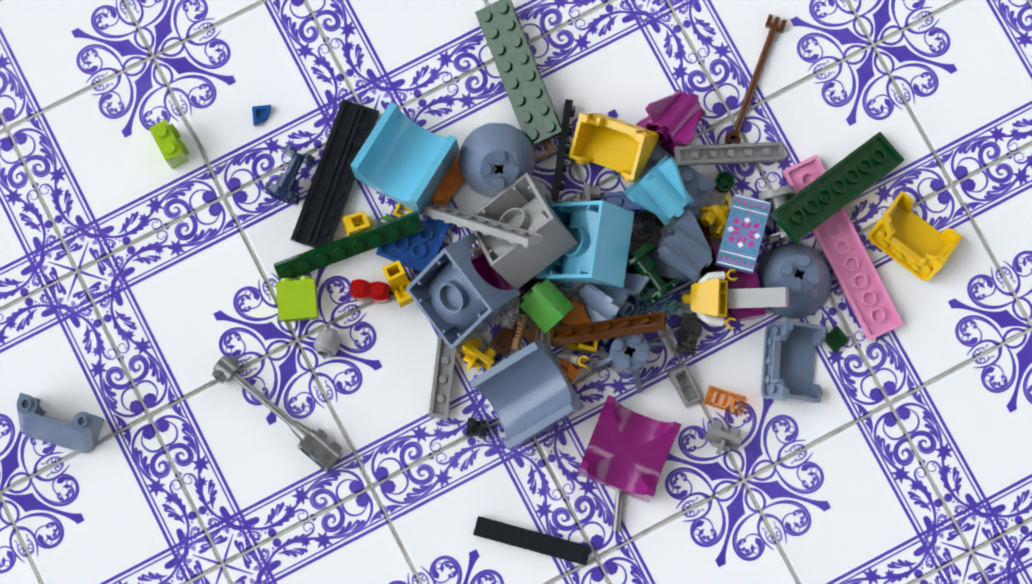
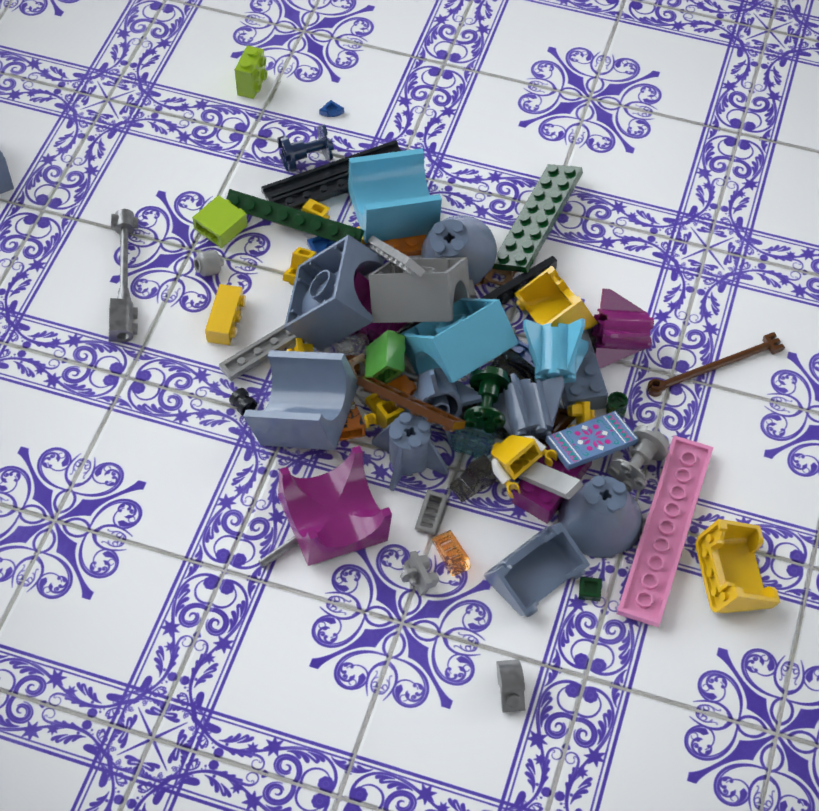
camera: 45 degrees right, 25 degrees down
(364, 291) = (274, 256): red brick -> none
(387, 372) = (225, 314): none -> yellow brick
(532, 540) = (192, 513): black tile -> none
(729, 154) = (641, 387): light grey tile -> none
(837, 187) = (705, 474): dark green plate -> none
(855, 456) = (511, 685): none -> flat silver brick

